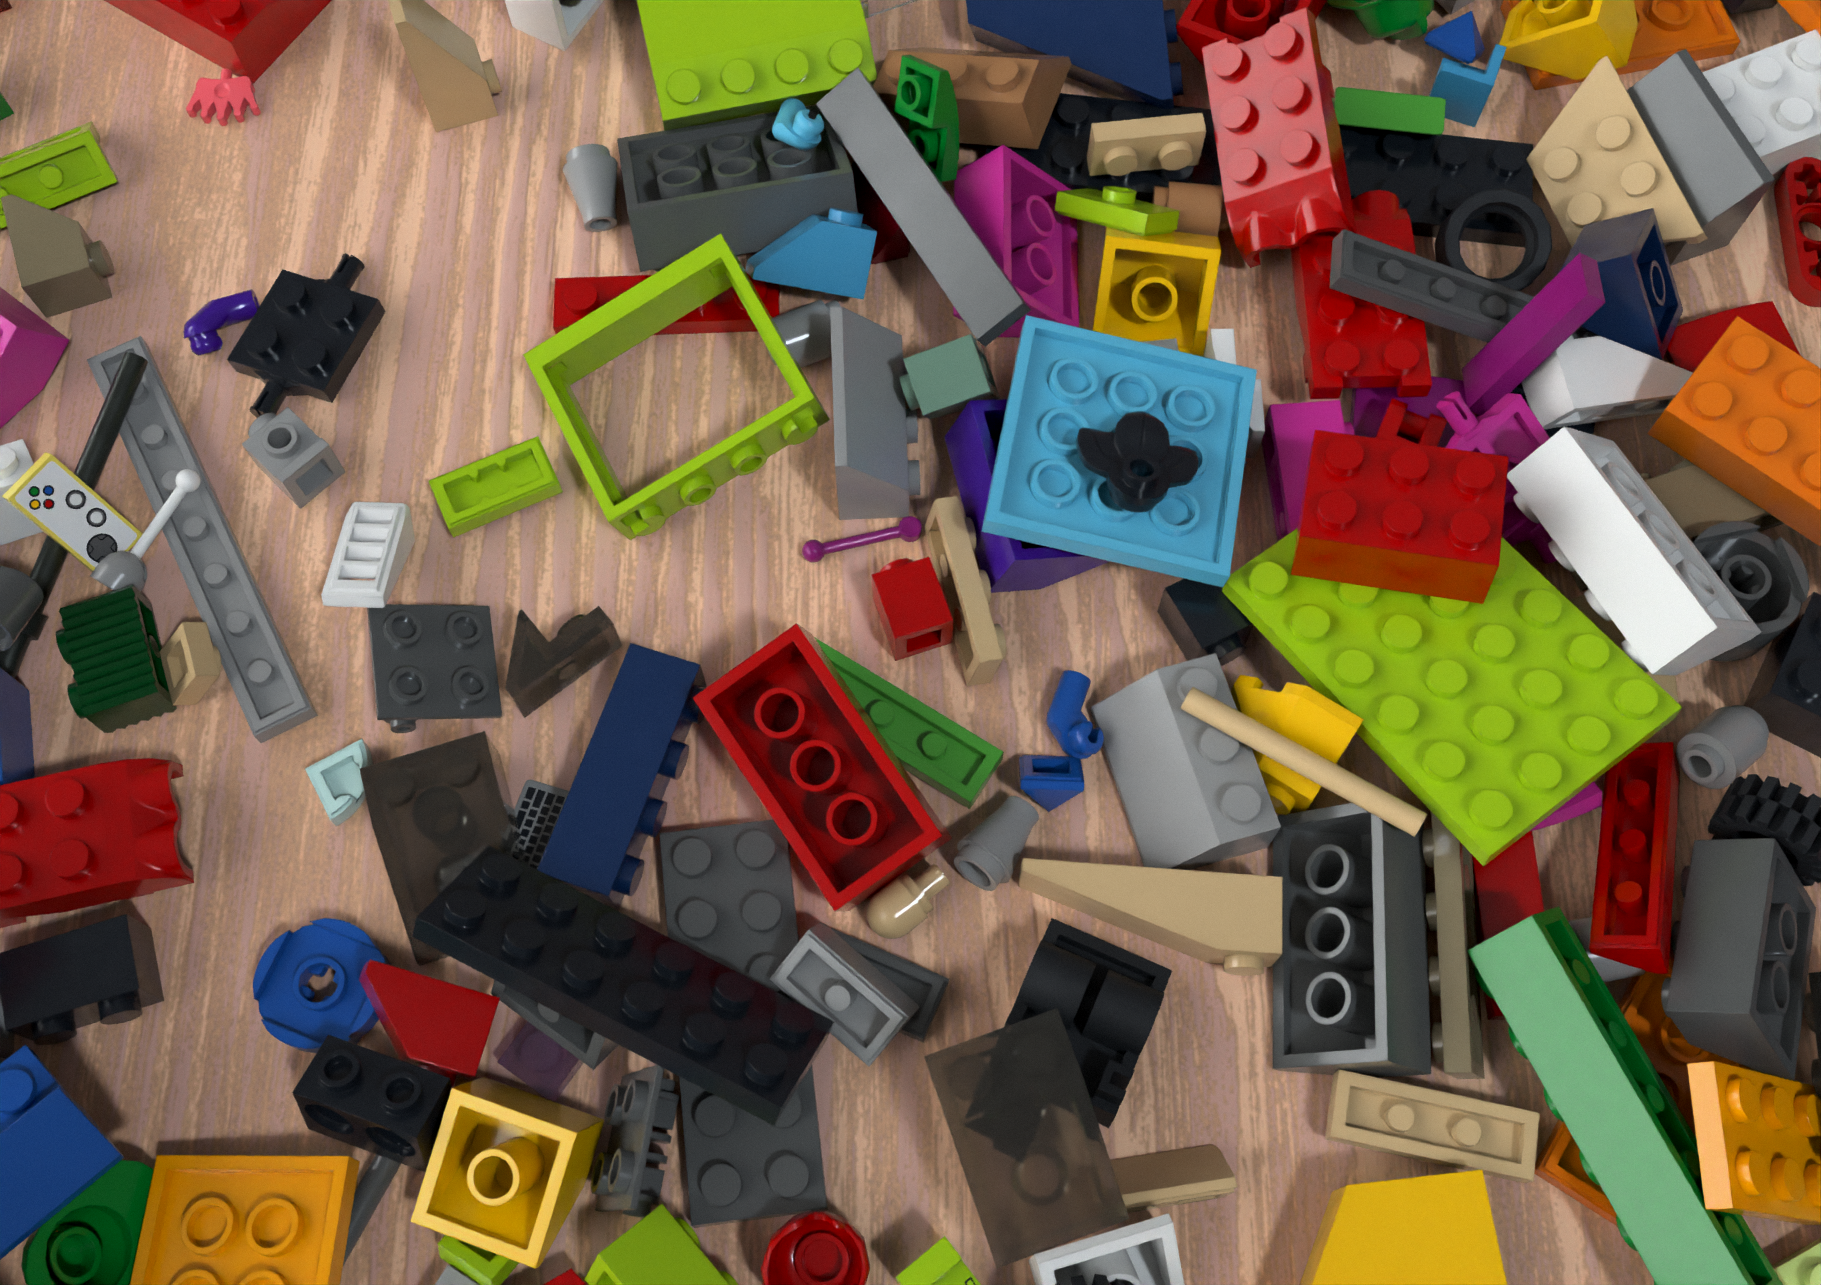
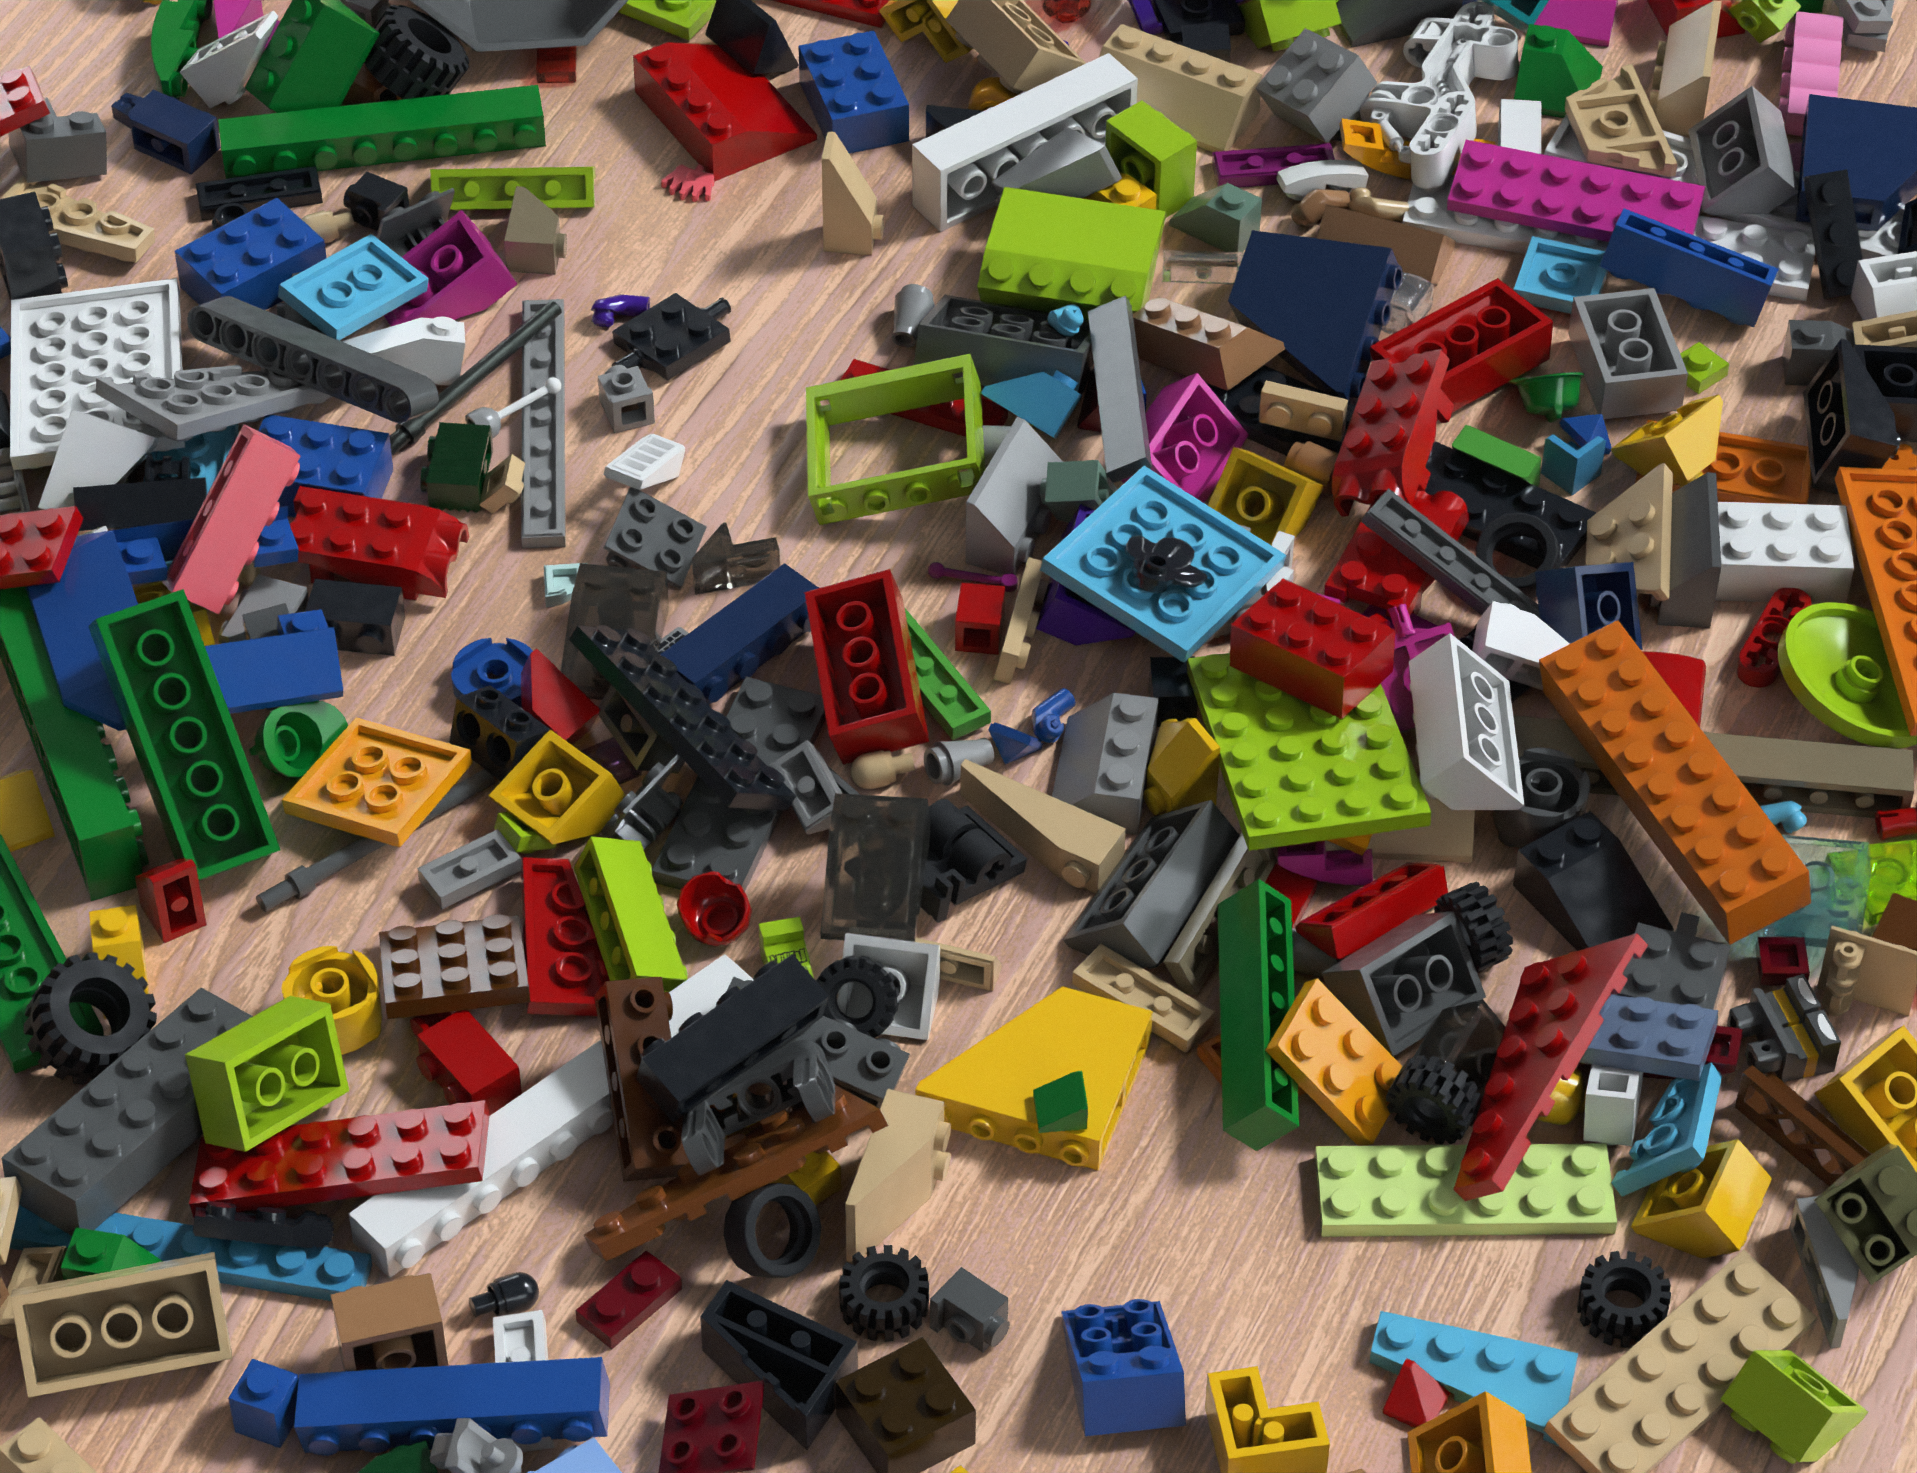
camera: 25 degrees right, 20 degrees down
(71, 512) = (472, 373): tile -> none
(495, 486) = (747, 460): lime plate -> none
(930, 103) = (1157, 326): green slope -> none
(1117, 209) = (1262, 444): lime plate -> none
(1304, 761) = (1170, 760): tan bar -> none
(1533, 333) = (1491, 588): magenta tile -> none
(1723, 746) = (1486, 871): light grey brick -> none

